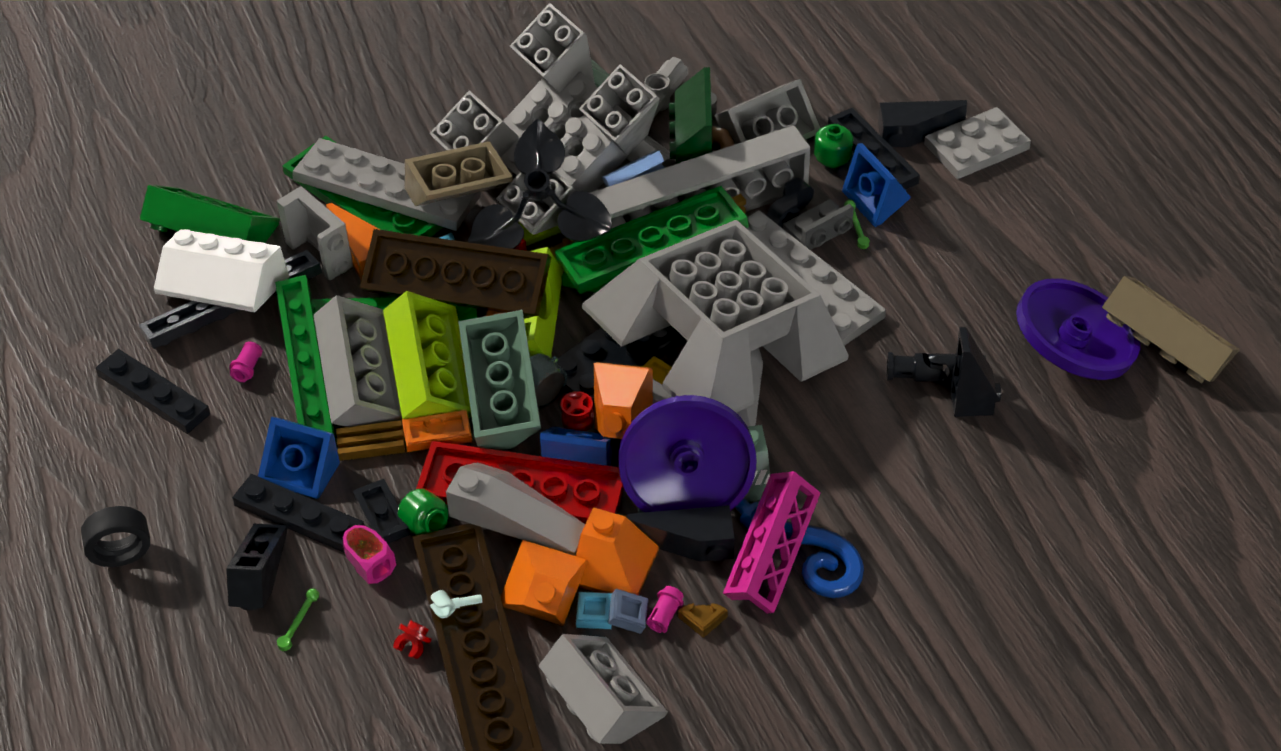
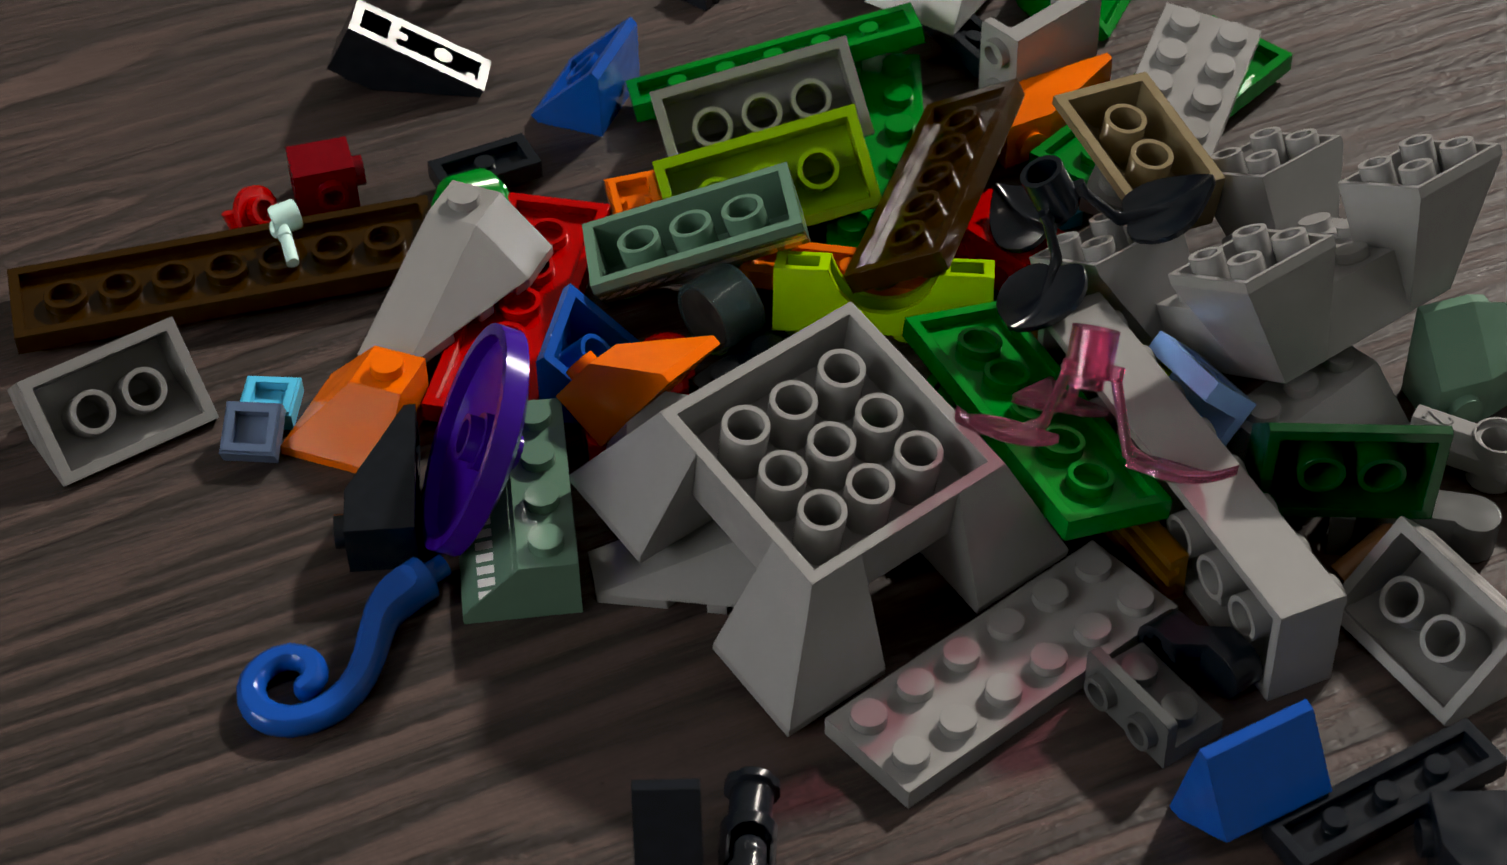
camera: 90 degrees right, 5 degrees down
(242, 367) = (787, 21): dark pink pin -> none
(284, 642) = (282, 106): bright green hinge -> none
(295, 511) = (503, 95): black plate -> none
(368, 553) = (400, 153): dark pink rock -> none
(370, 436) = (630, 133): pearl gold tile -> none
(384, 597) = (325, 176): none -> dark red brick
(543, 582) = (303, 330): orange slope -> none
(668, 602) = (259, 477): dark pink pin -> none
(683, 174) = (1086, 367): none -> clear pink plant
(702, 617) = (230, 525): pearl gold tile -> none
(767, 534) = (344, 569): dark pink fence -> none
(833, 145) = (1372, 717): green head -> none
(863, 241) = (1116, 779): bright green hinge -> none

